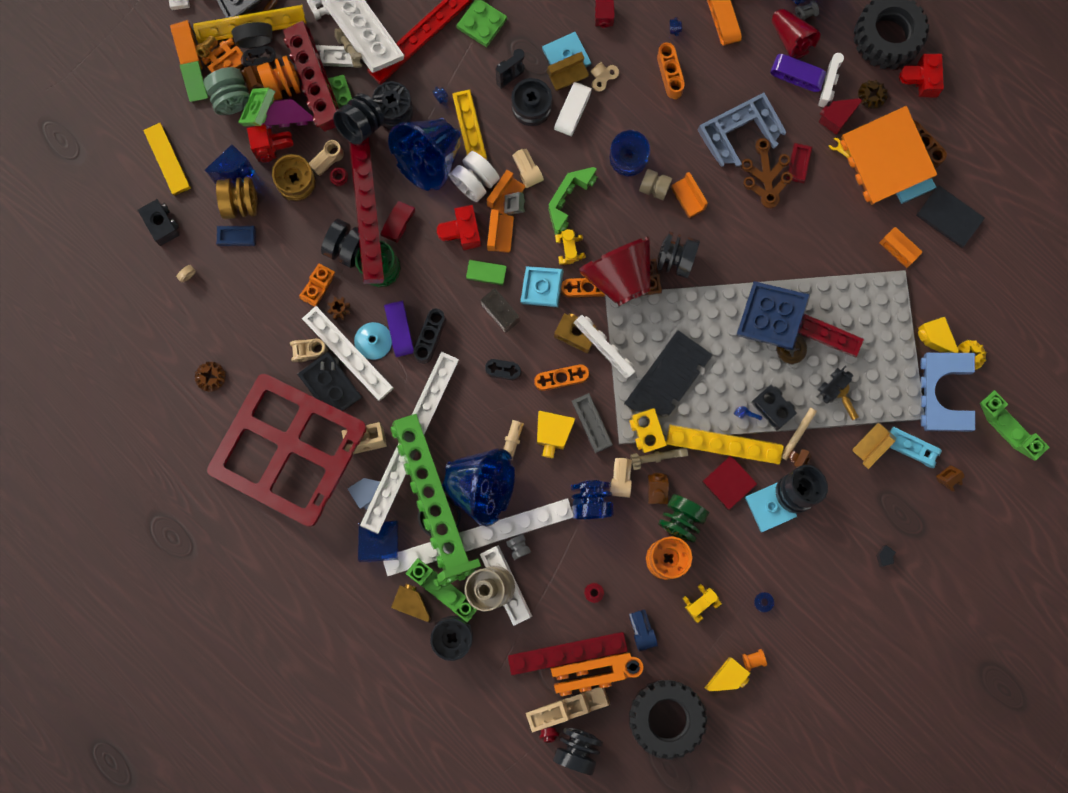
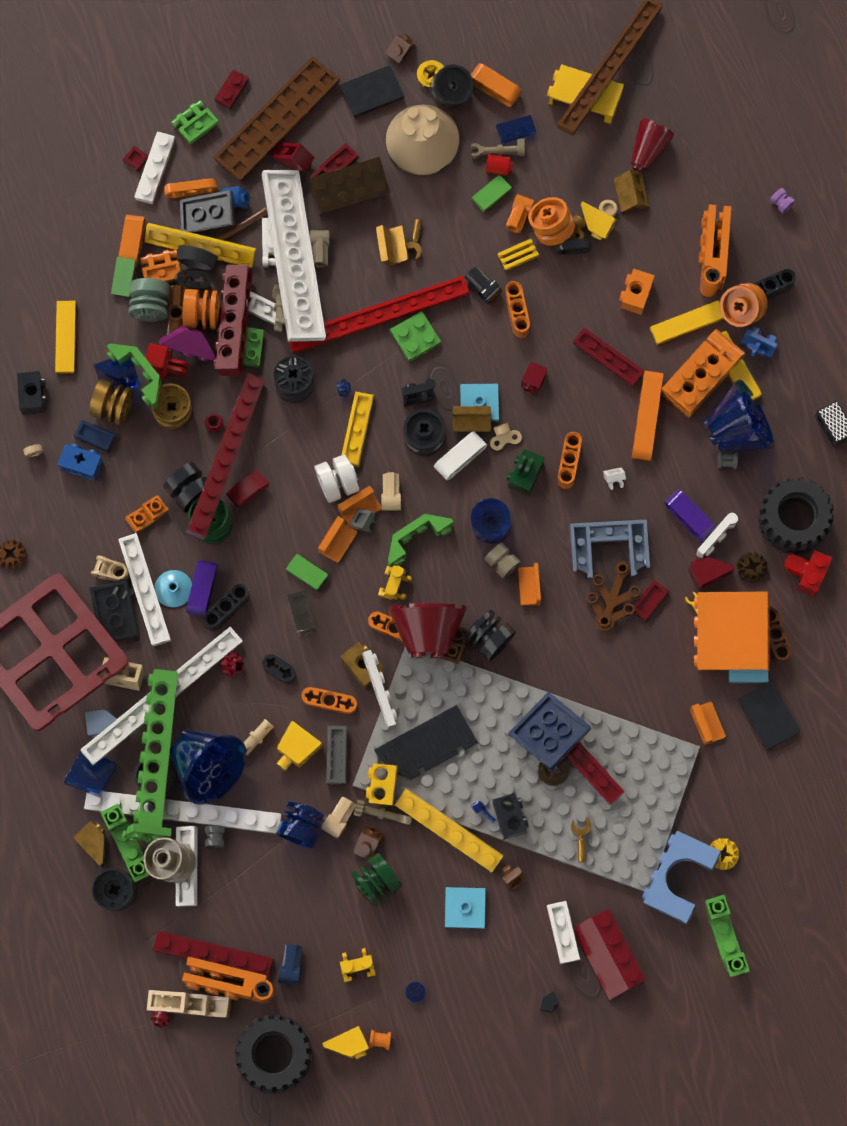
camera: 25 degrees right, 5 degrees down
(203, 49) = (146, 251): pearl gold pin -> none
(226, 147) = (122, 353): none -> bright green slope
(242, 268) = (87, 469): none -> blue brick
(256, 107) = (167, 327): bright green plate -> none
(324, 159) = (208, 400): tan piece -> none
(343, 312) = (160, 548): reddish brown gear -> none
(358, 118) = (254, 379): black wheel -> none
(425, 151) = (303, 435): clear blue cone -> none
(460, 384) = (232, 664): none -> dark red gear
(462, 228) = (304, 521): red brick -> none
(542, 286) = (351, 608): medium azure plate -> none
(578, 751) = (178, 1043): black wheel -> none
(589, 597) = (263, 917): dark red plate -> none
(637, 97) = (525, 472): none -> dark green brick
(675, 26) = (594, 420): clear blue plate -> none
(679, 559) = (350, 899): orange wheel -> none
(715, 67) = (614, 475): none -> white tile
(729, 482) = (437, 868): dark red tile -> none
(795, 33) = (703, 477): dark red cone -> none
(798, 433) = (523, 851): tan bar -> none
(801, 489) = (506, 903): black wheel -> none
(829, 390) = (583, 817): black hinge -> none
(867, 488) = (563, 932): none -> white plate
(874, 445) = (588, 894): pearl gold panel -> none
(915, 448) = (624, 913): medium azure plate -> none
(918, 489) = (609, 954): none -> dark red slope
(938, 336) = (699, 821): yellow slope -> none
(950, 477) = (646, 957): reddish brown tile -> none

